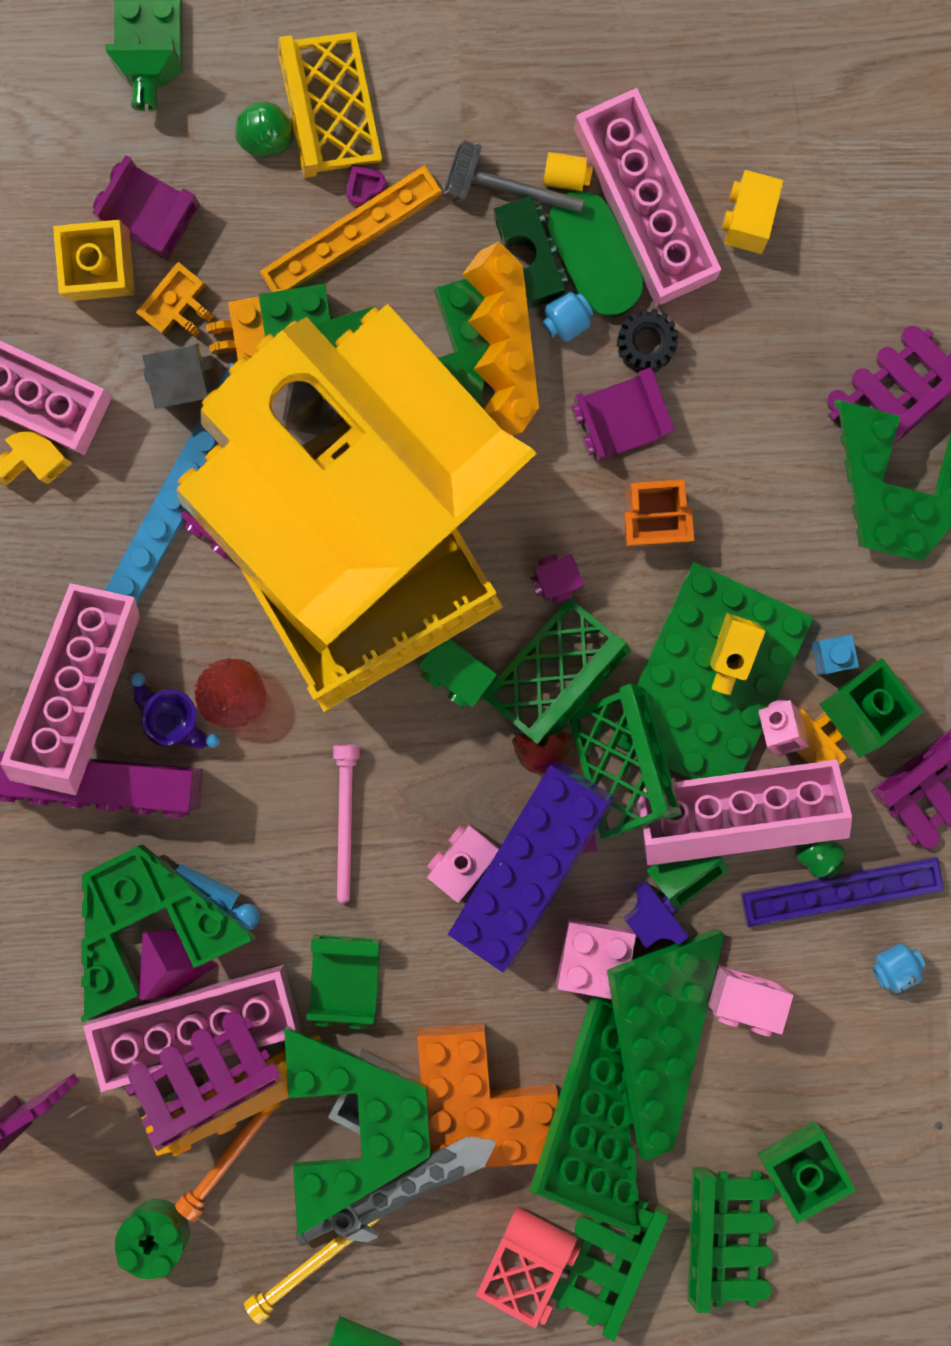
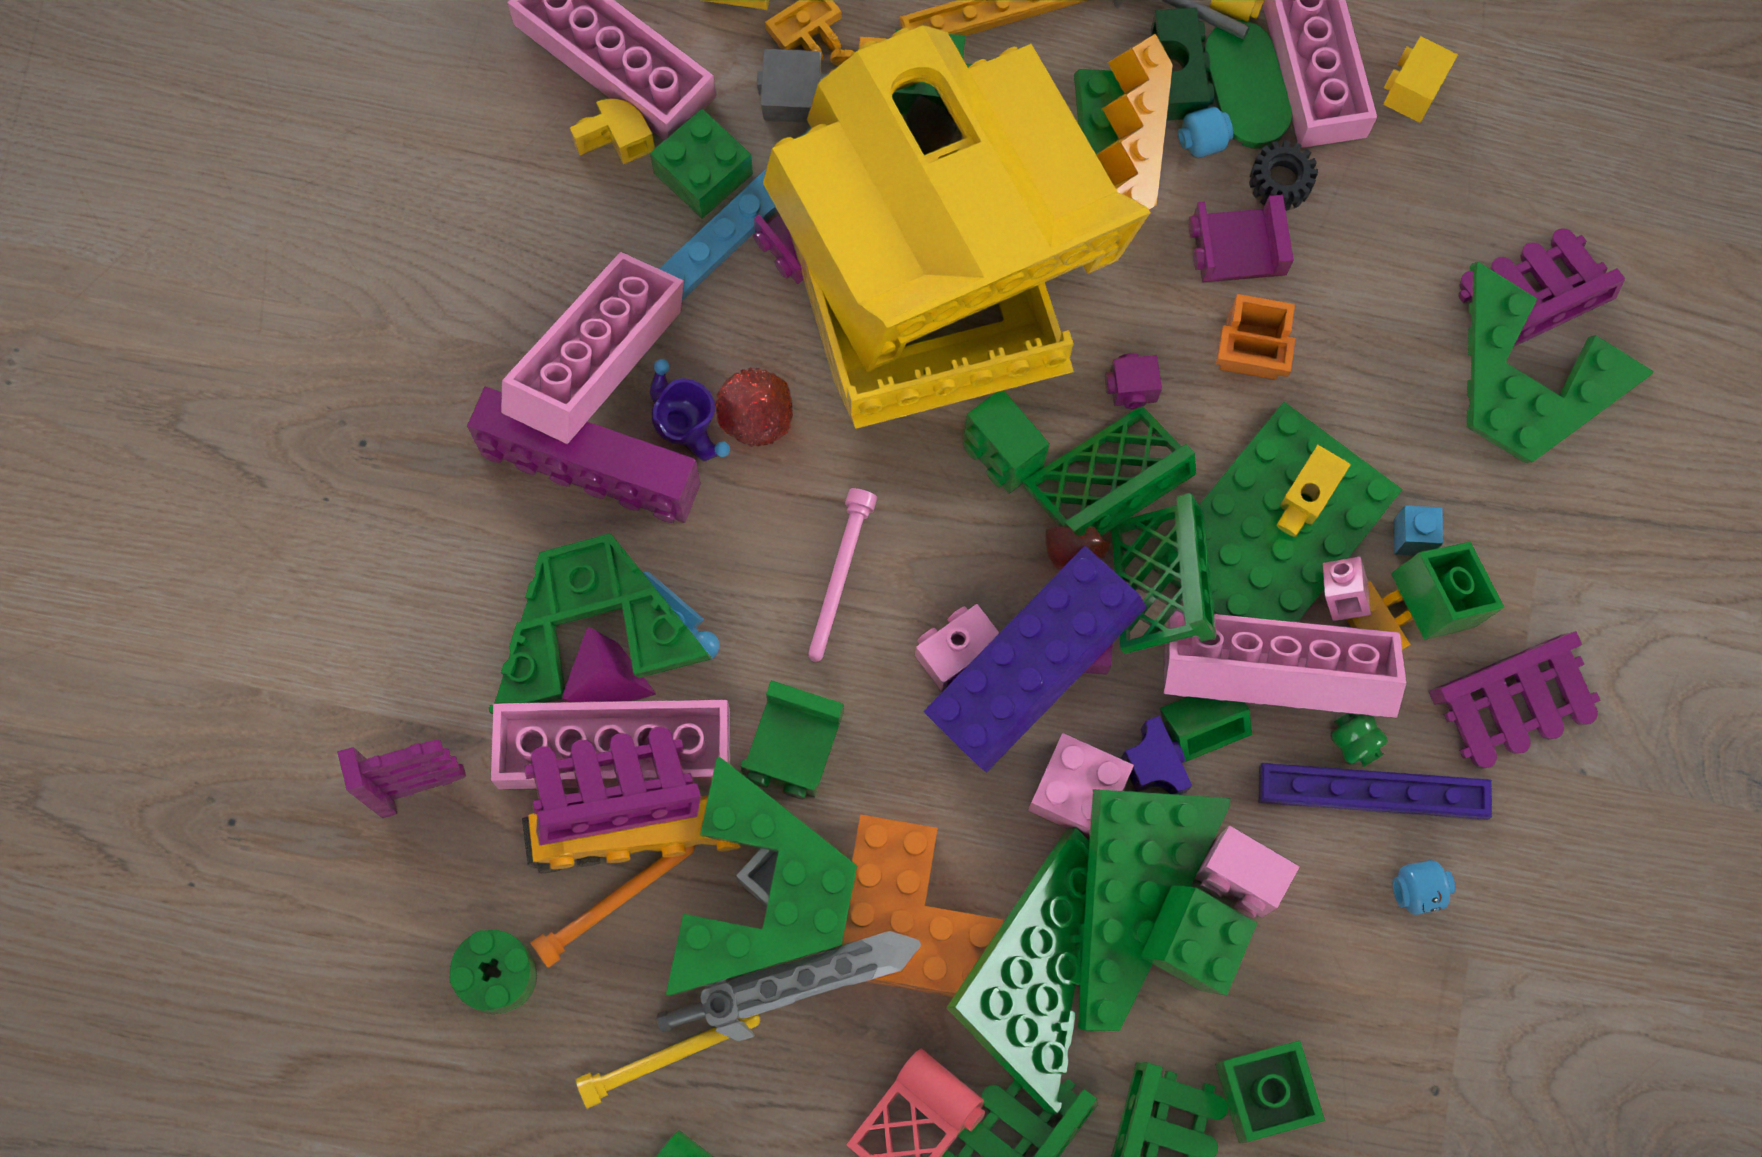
camera: 10 degrees right, 15 degrees down
(118, 470) = (701, 163): none -> green brick
(722, 1065) = (1199, 939): none -> green brick

